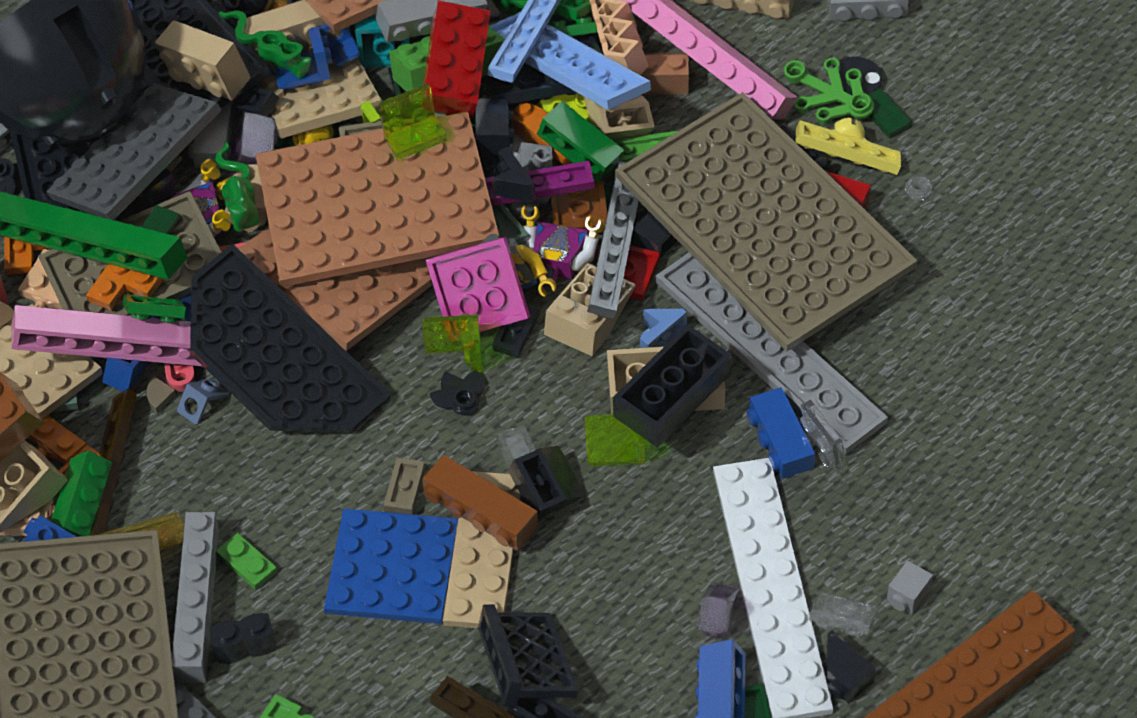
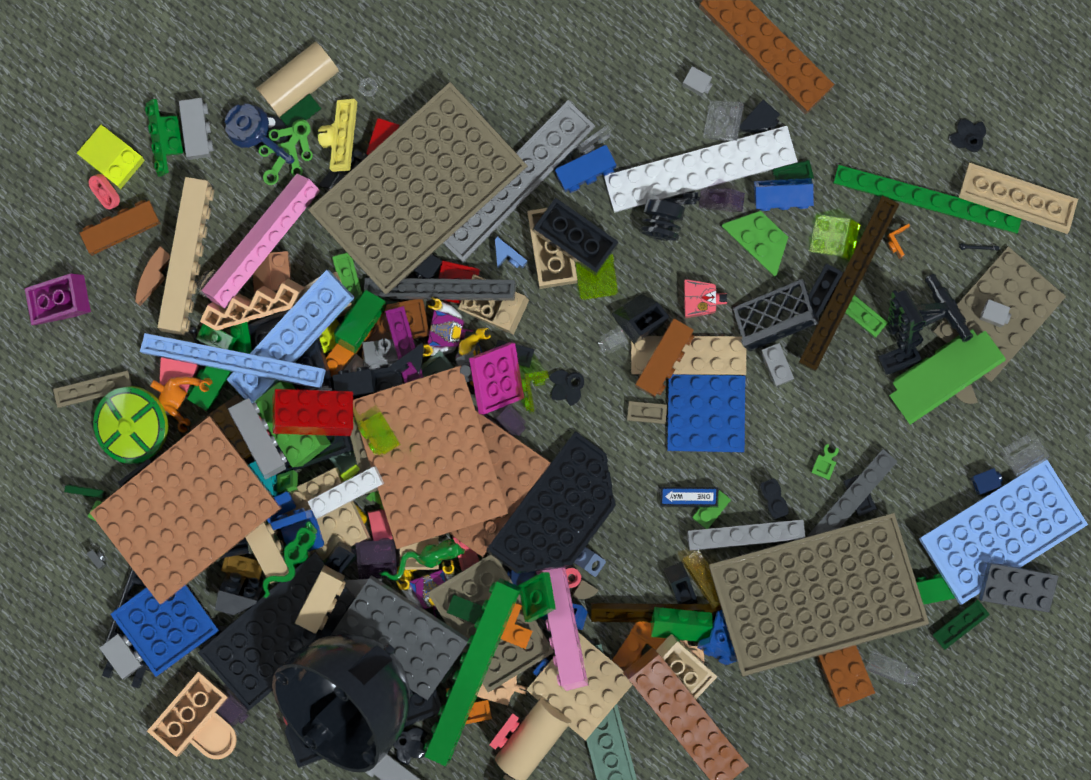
camera: 100 degrees left, 30 degrees up
(140, 503) = (680, 584): none -> black slope
(267, 528) = (690, 497): none -> tile
(343, 104) = (346, 492): none -> white plate
(374, 67) = (287, 482): none -> bright green plate
(416, 304) = (511, 421): none -> clear purple slope
(451, 656) = (777, 365): none -> light grey brick
(568, 566) = (701, 298): none -> coral torso
(653, 659) = (759, 238): none -> bright green wing
(692, 516) = (662, 219): none -> black wheel
(725, 561) = (688, 199): none -> black plate
(865, 48) = (248, 126): none -> dark blue piece
(932, 109) = (297, 79): none -> tan brick

